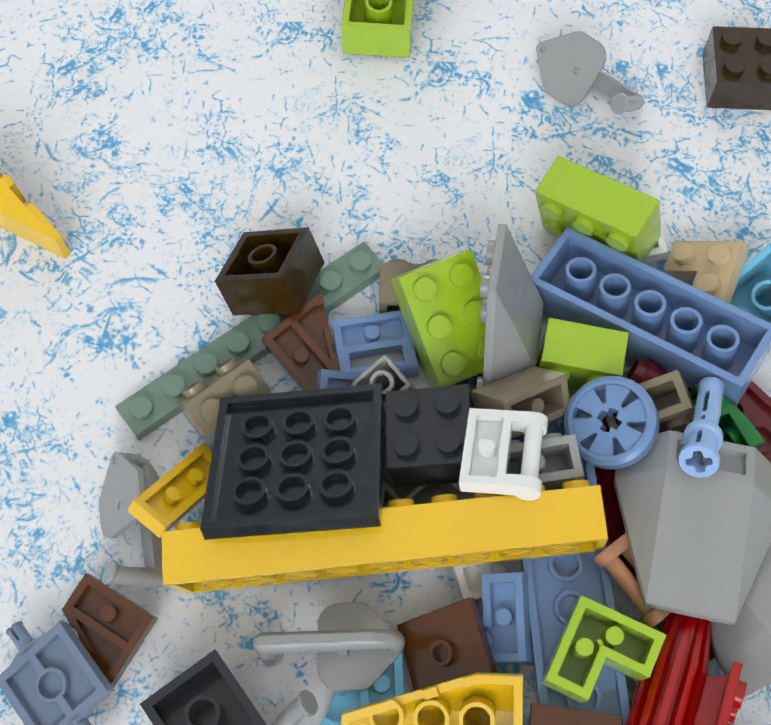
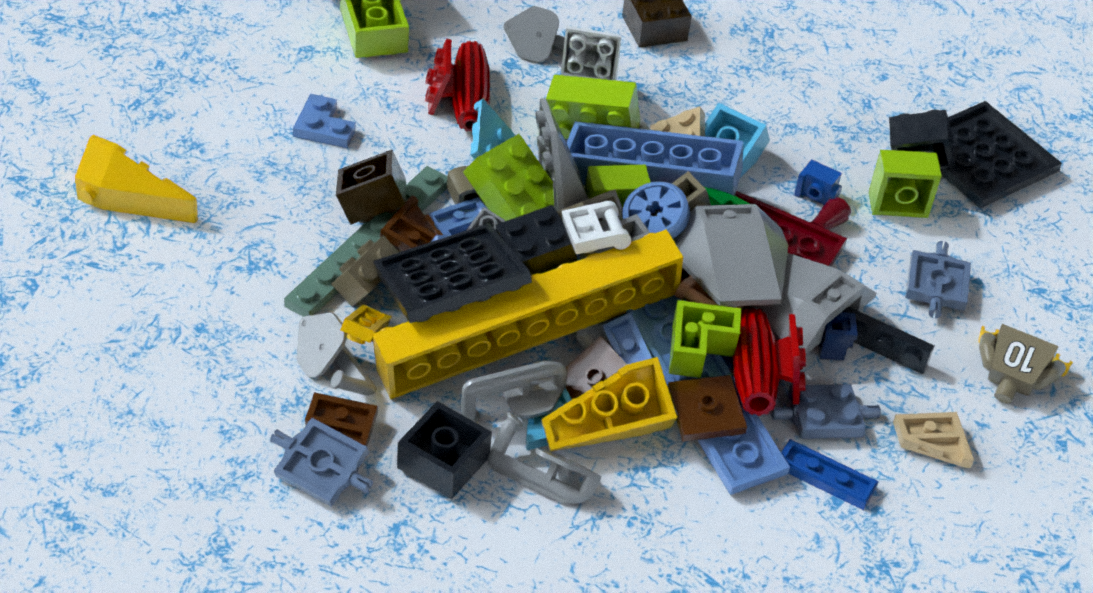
camera: 25 degrees left, 20 degrees down
(260, 145) = (319, 125): none -> medium blue plate
(453, 127) = (464, 81): none -> red plate
(456, 218) = (488, 130): none -> medium azure wing
(620, 138) = (590, 54): none -> white slope
(703, 433) = (726, 195): light blue pin -> none

